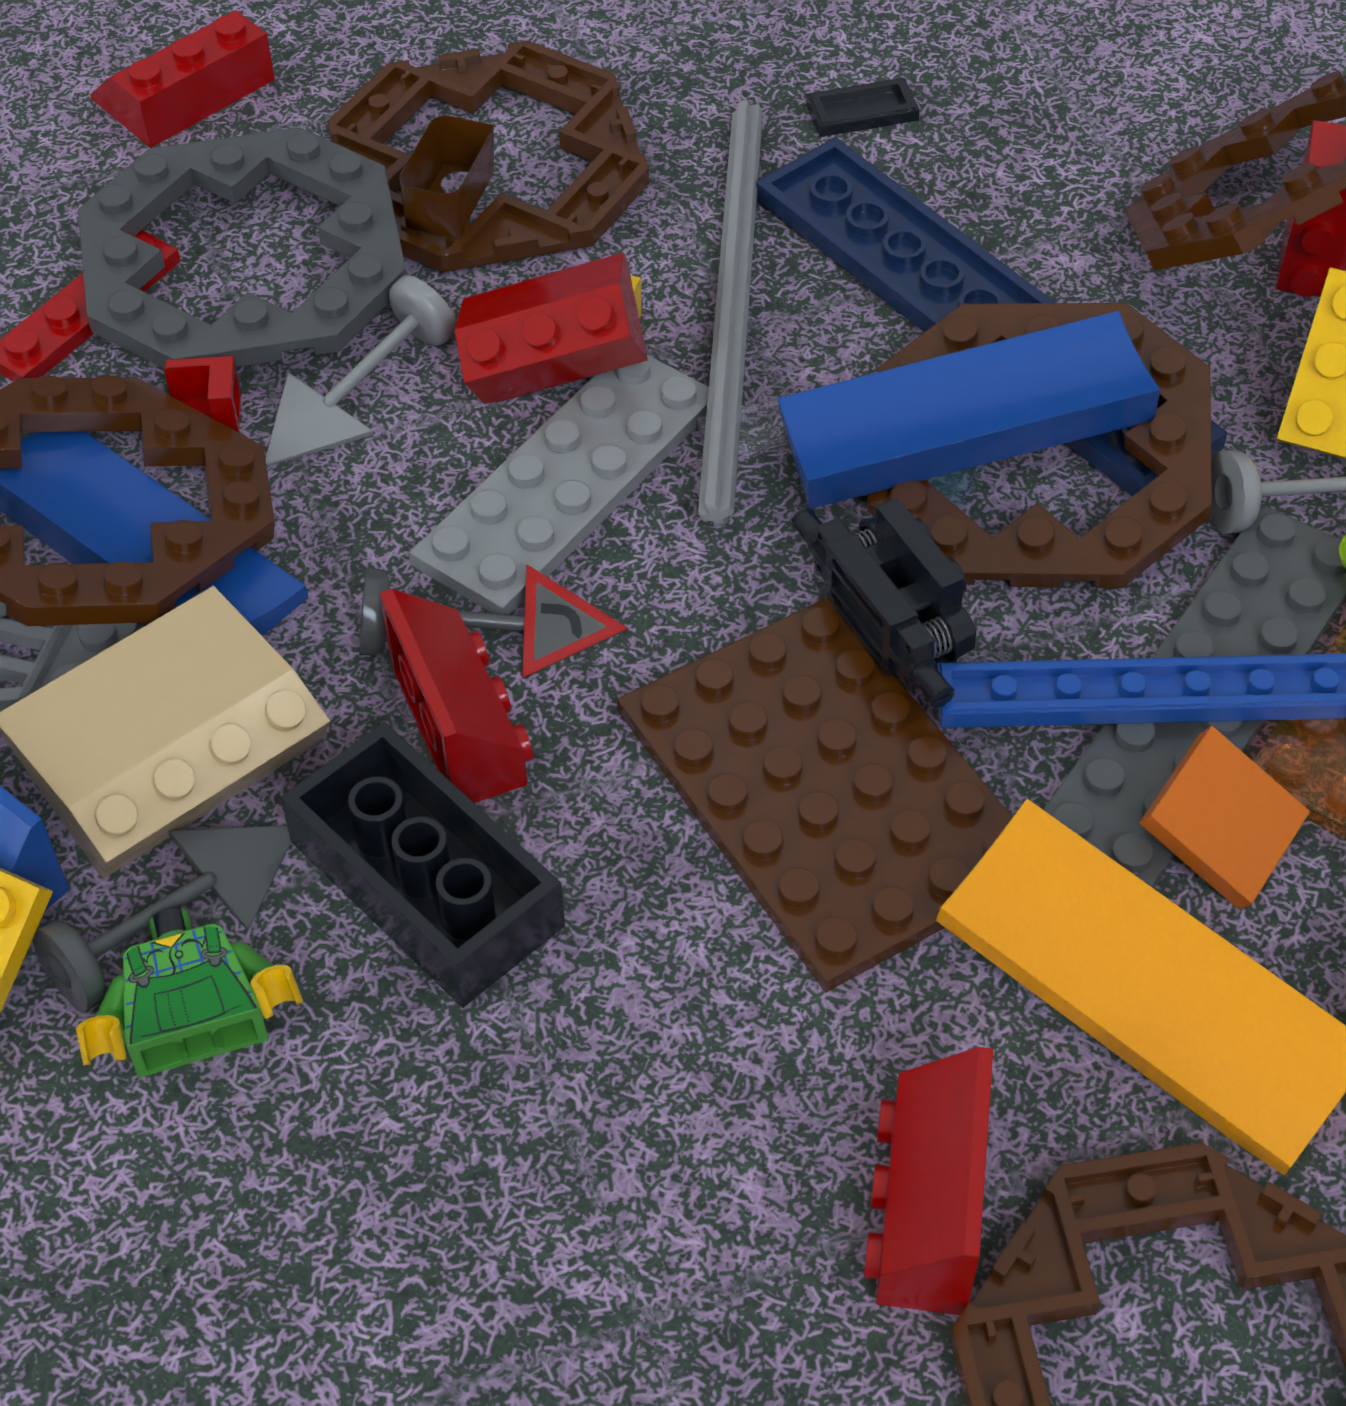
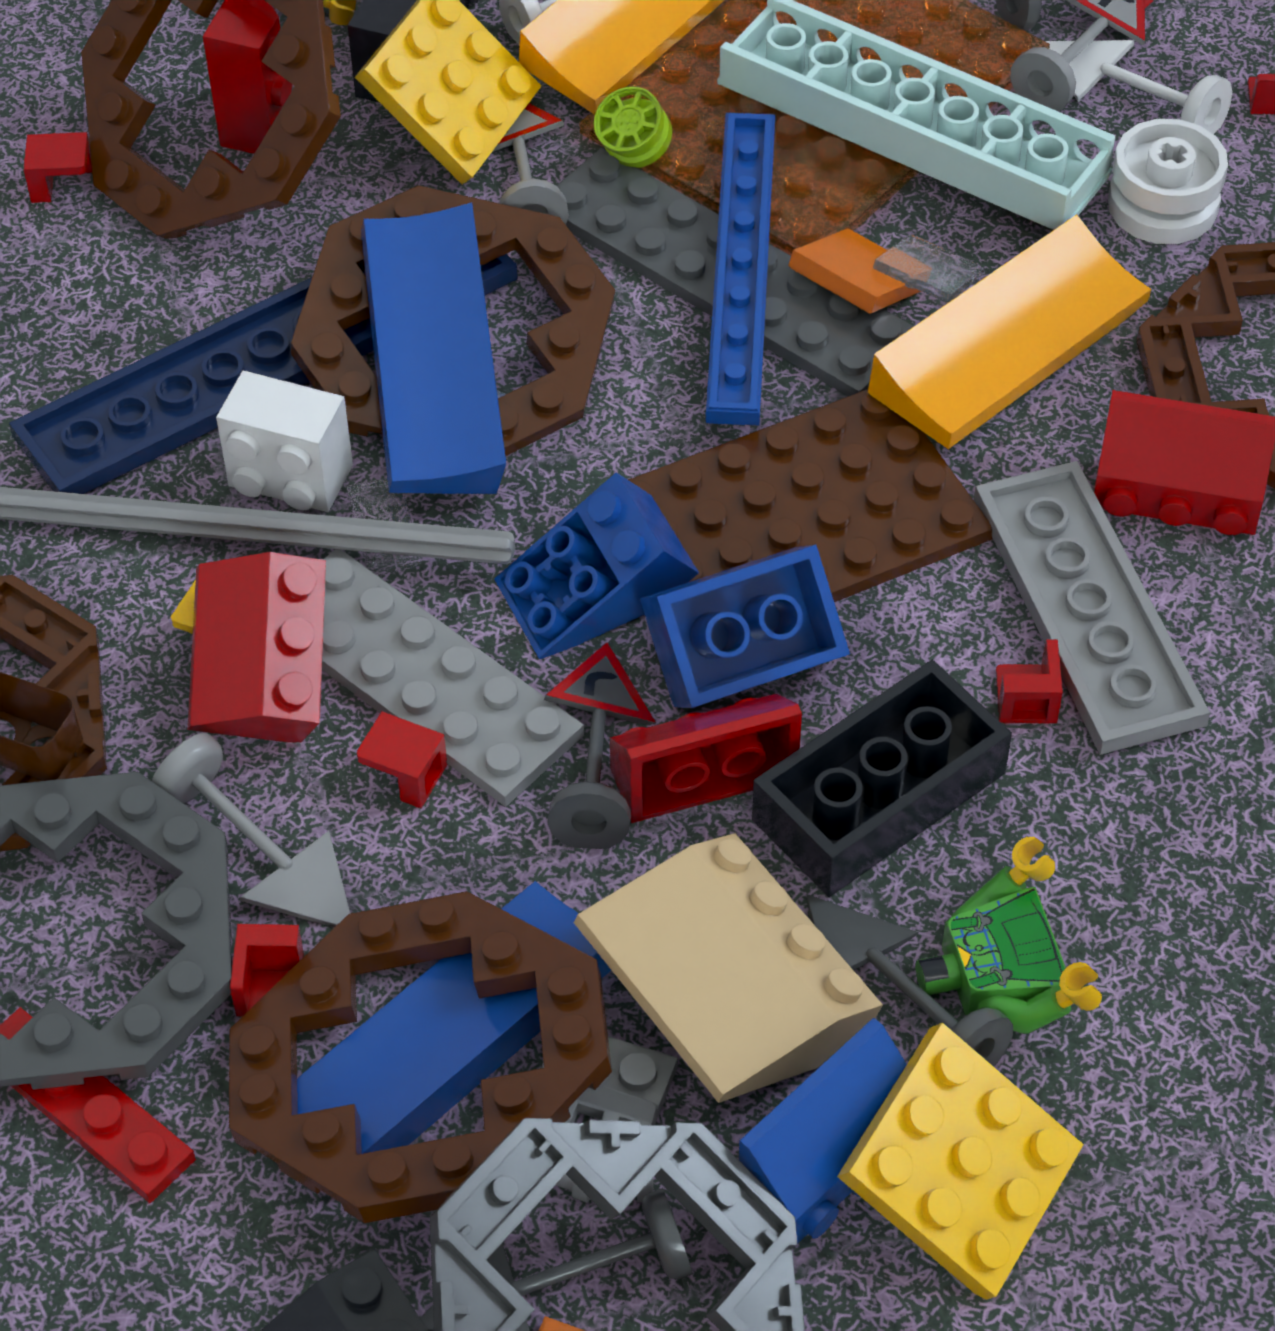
camera: 85 degrees left, 0 degrees up
(444, 463) = (406, 752): none -> red panel
(580, 1028) = (1031, 690): none -> red panel
(611, 713) = (744, 626): none -> blue brick
(706, 596) = (594, 568): none -> blue slope
(711, 1090) = (1091, 600): none -> light grey plate
(821, 313) = (285, 441): none -> white brick
(894, 593) = (633, 424): black piece -> none
(1190, 109) = (54, 156): none -> red panel
(1255, 897) = (928, 268): none -> clear piece

